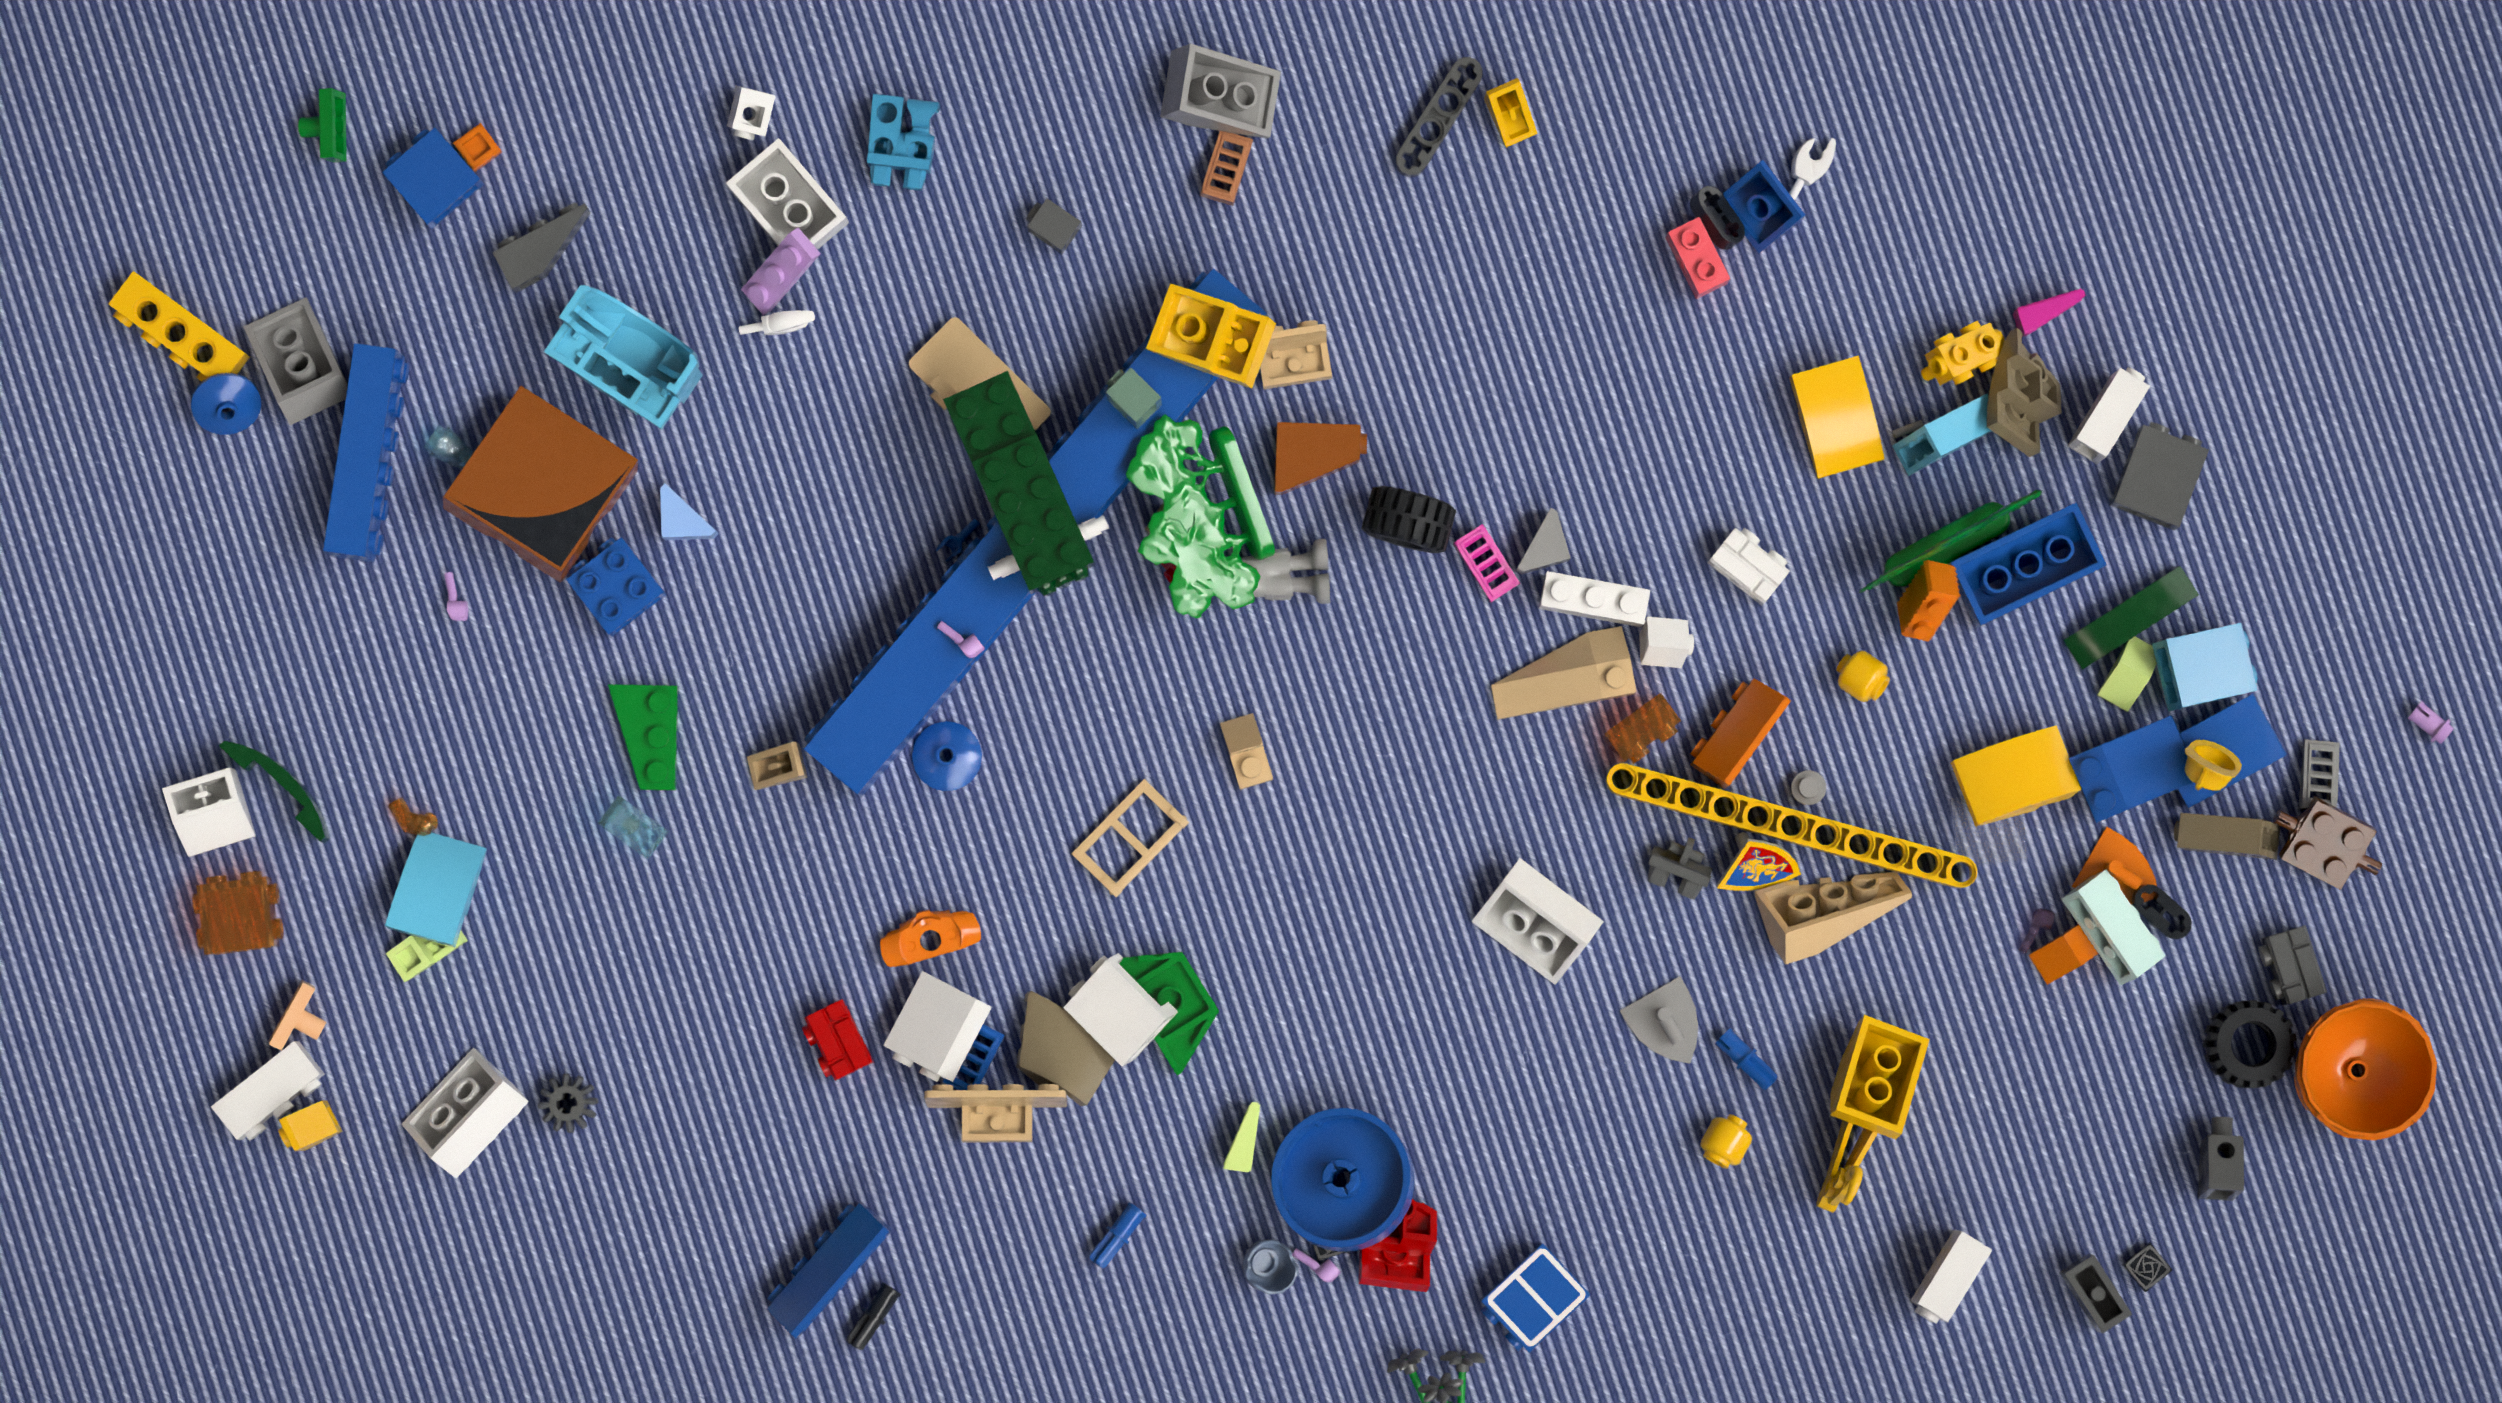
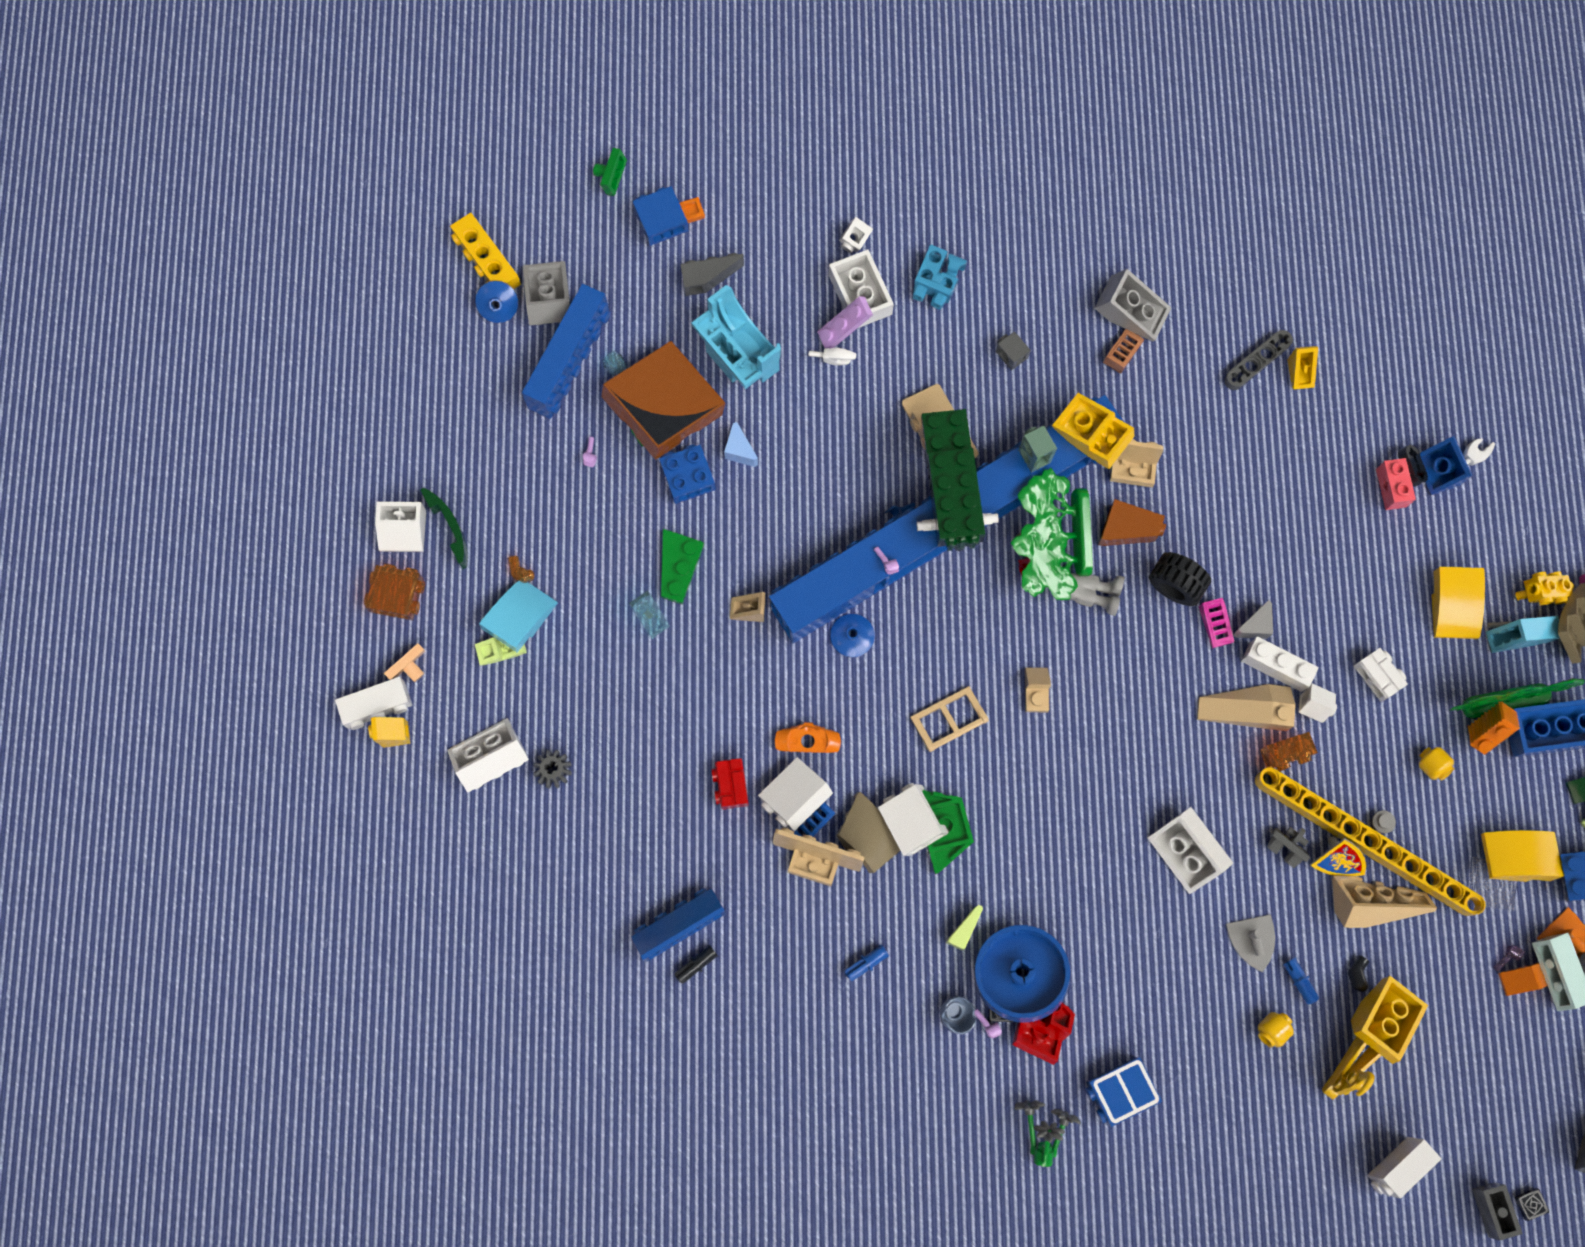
camera: 20 degrees right, 10 degrees down
(1738, 732) = (1351, 772): orange slope -> none
(1824, 1024) = (1356, 974): none -> black arm

